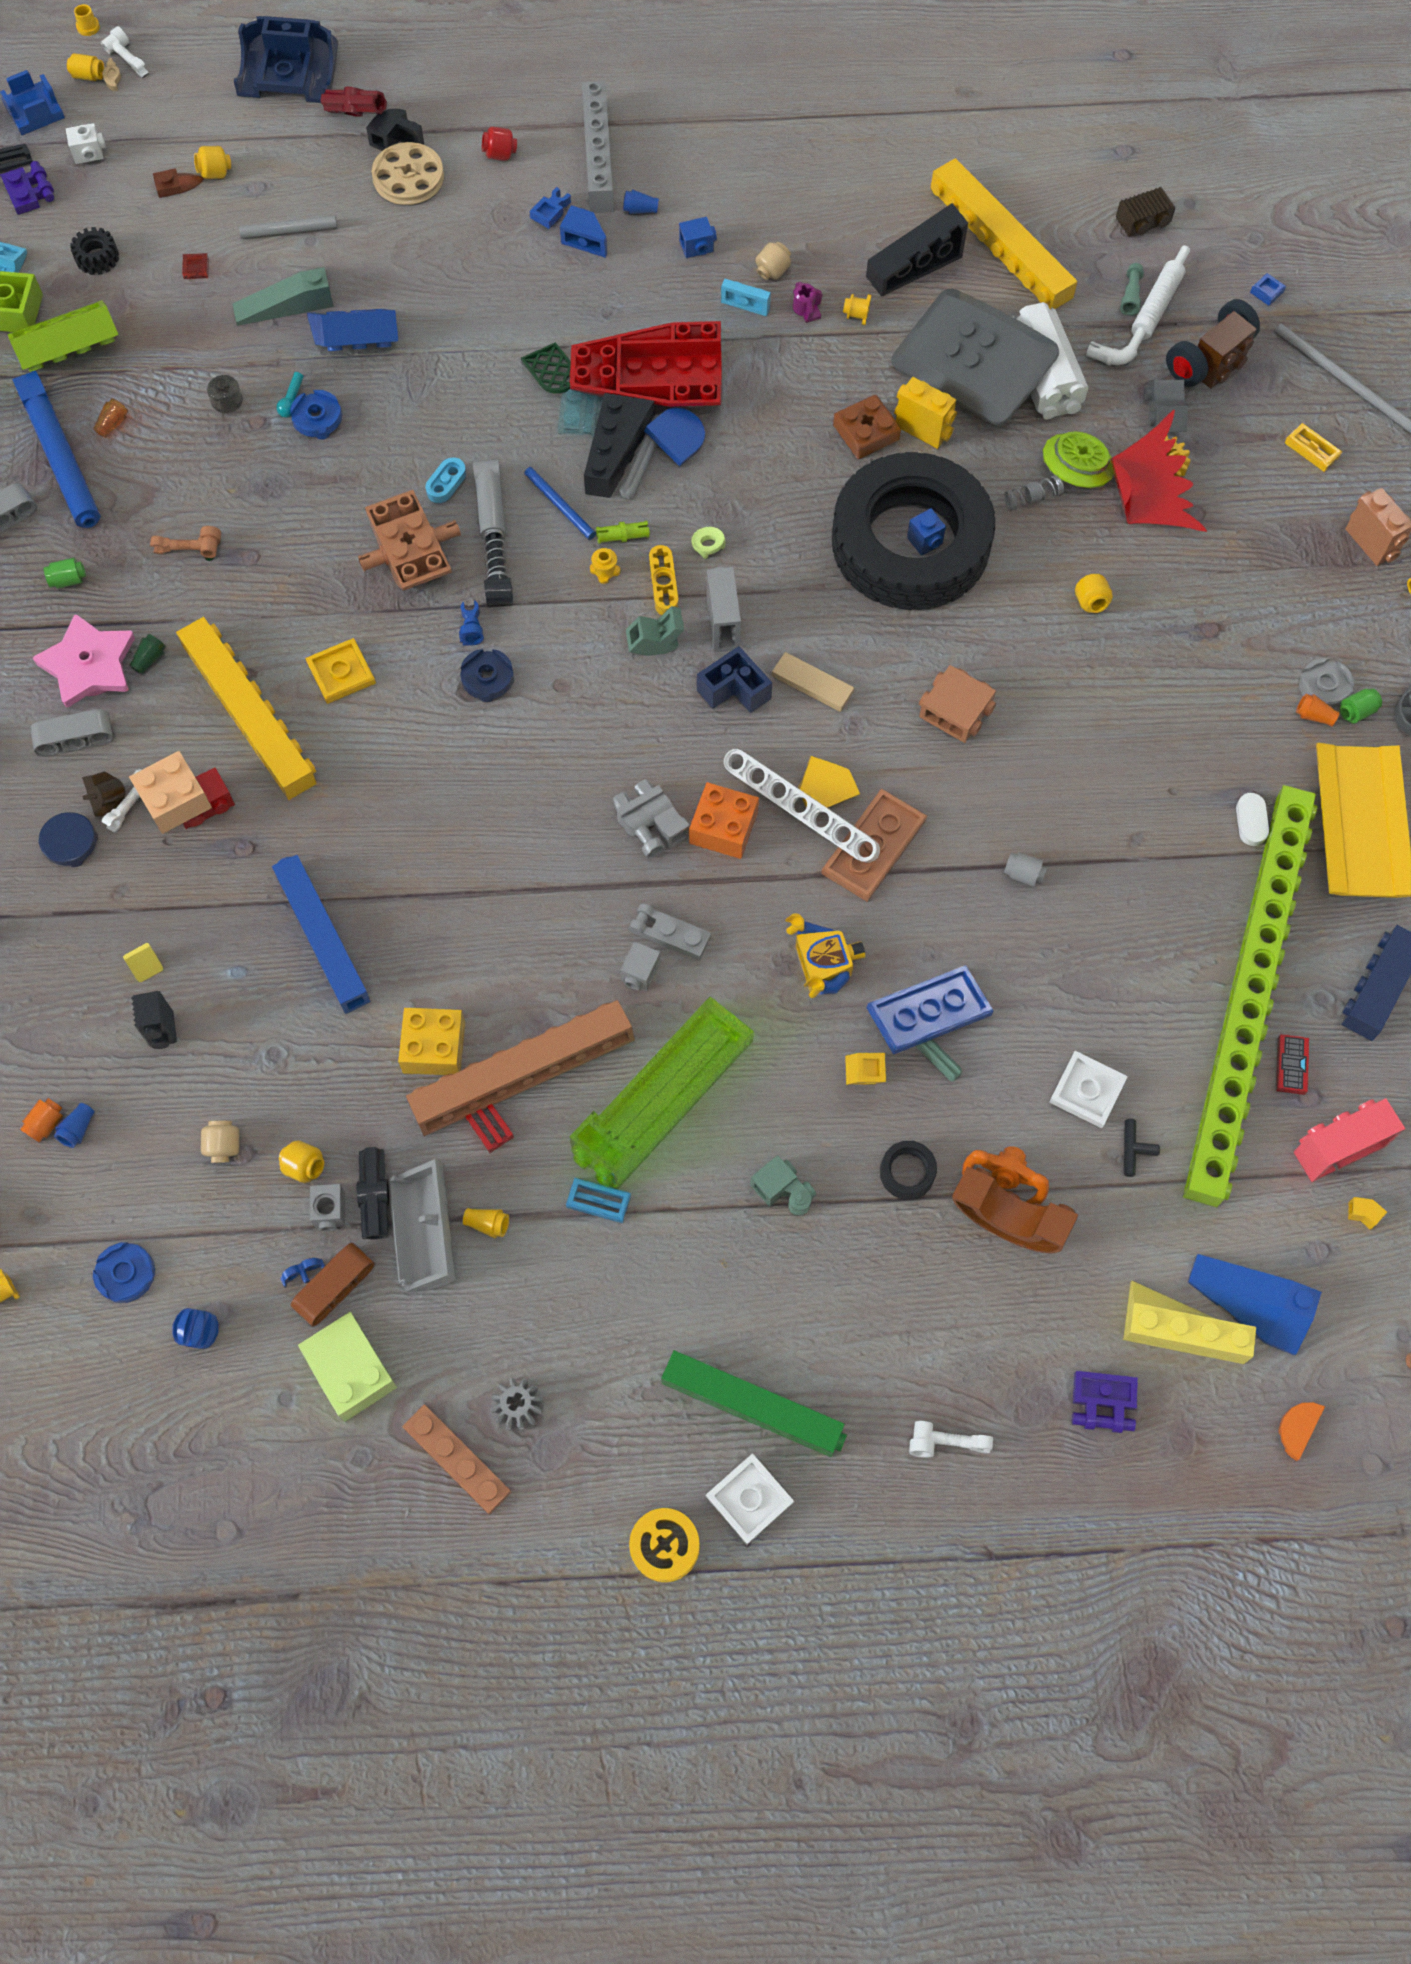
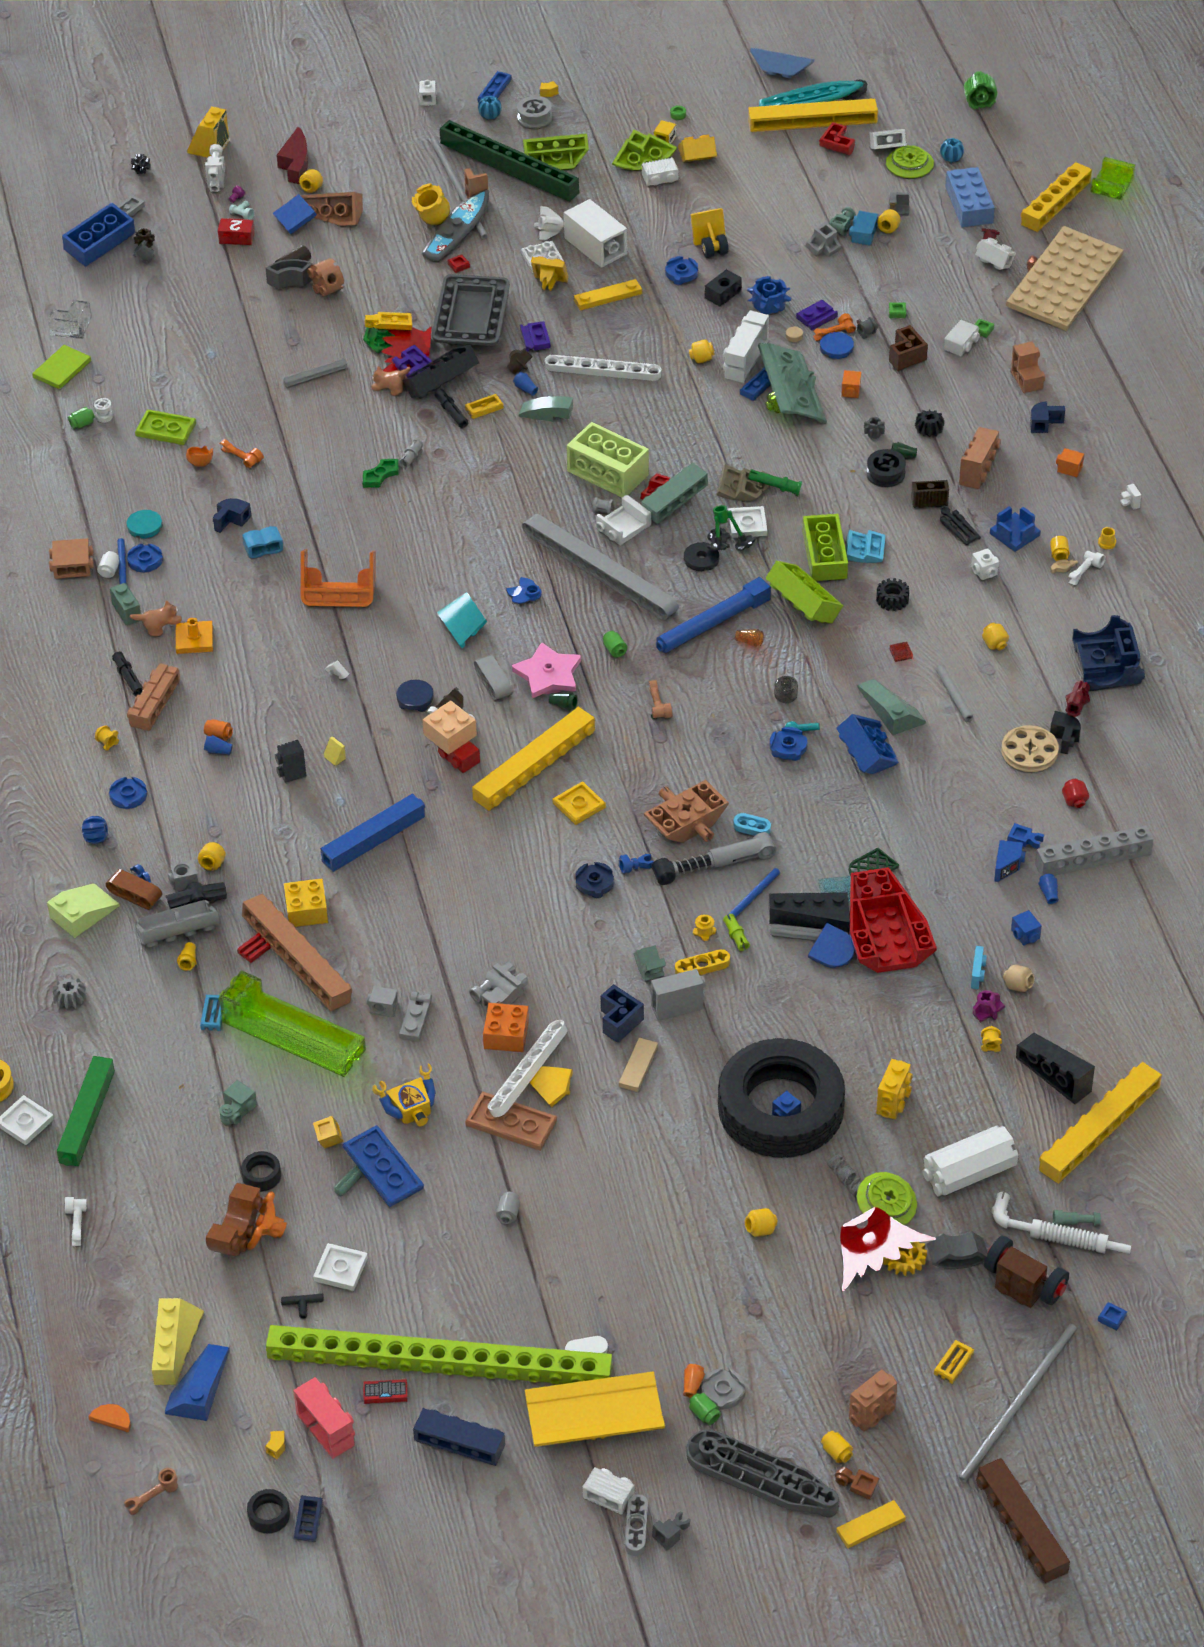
camera: 80 degrees right, 20 degrees down
(20, 191) = (939, 547): dark purple plate -> none
(173, 183) = (973, 622): copper plate -> none
(219, 1141) = (218, 814): tan head -> none
(457, 1459) = (32, 973): nougat plate -> none
(704, 534) = (743, 978): yellowish green piece -> none
(866, 426) = (874, 1059): dark orange brick -> none
(957, 703) = (636, 1147): nougat brick -> none
(976, 355) = (955, 1110): dark grey wedge -> none
(1104, 1391) = (121, 1301): dark purple plate -> none
(1145, 212) = (1160, 1217): dark brown brick -> none

